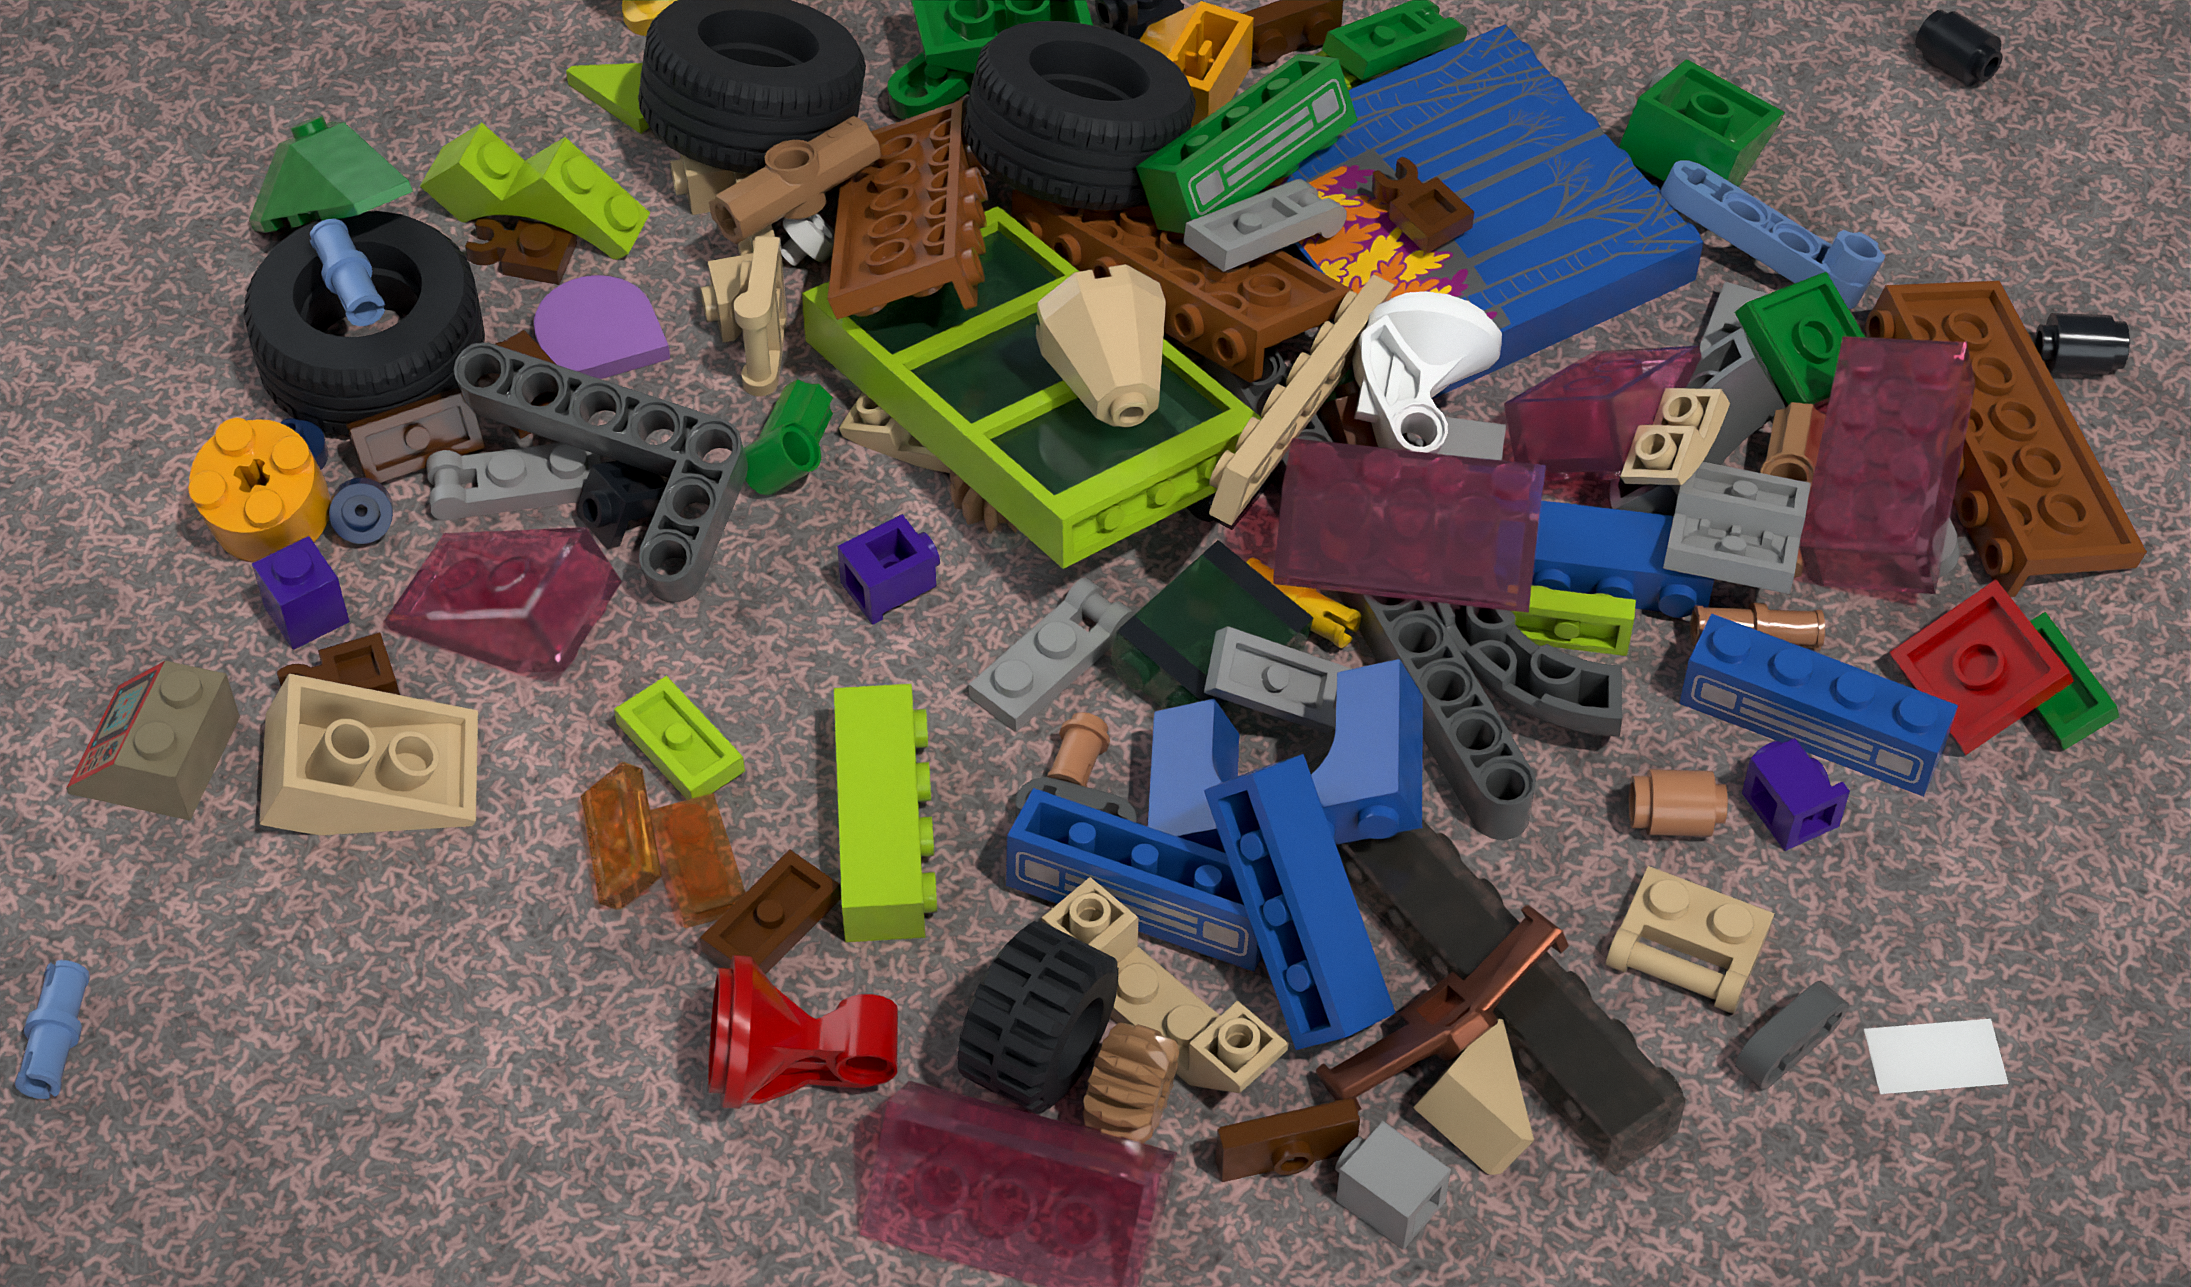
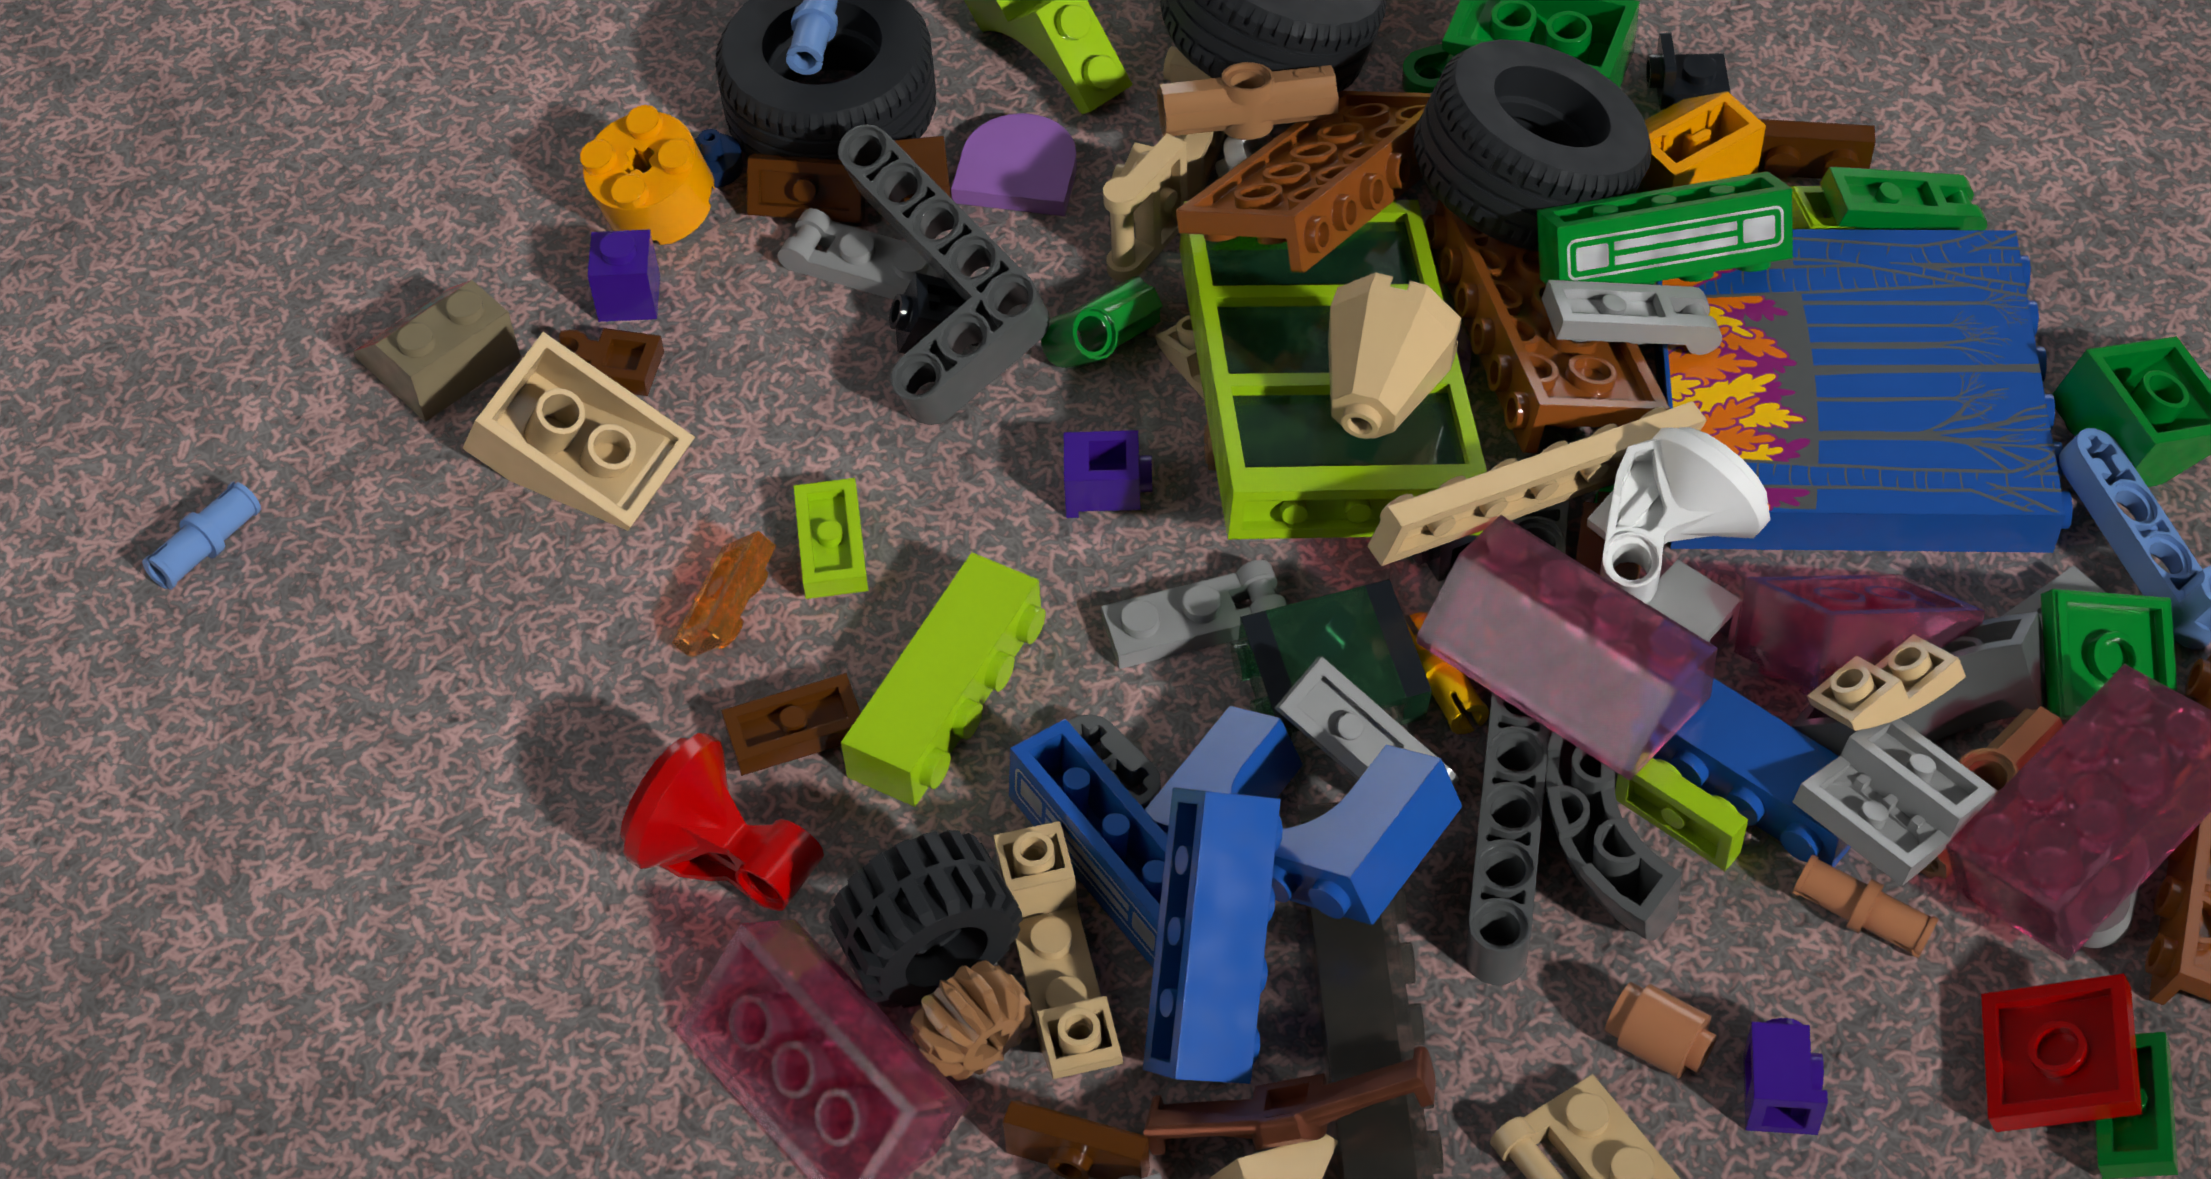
camera: 35 degrees right, 0 degrees up
(358, 523) = (720, 230): dark blue tile -> none
(509, 596) = (783, 356): clear pink slope -> none
(529, 252) = (1014, 77): reddish brown plate -> none
(698, 859) = (777, 643): clear orange plate -> none
(1083, 740) = (1153, 710): nougat pin -> none
(1424, 212) = (1799, 368): reddish brown plate -> none
(1819, 702) = (1868, 1008): blue brick -> none

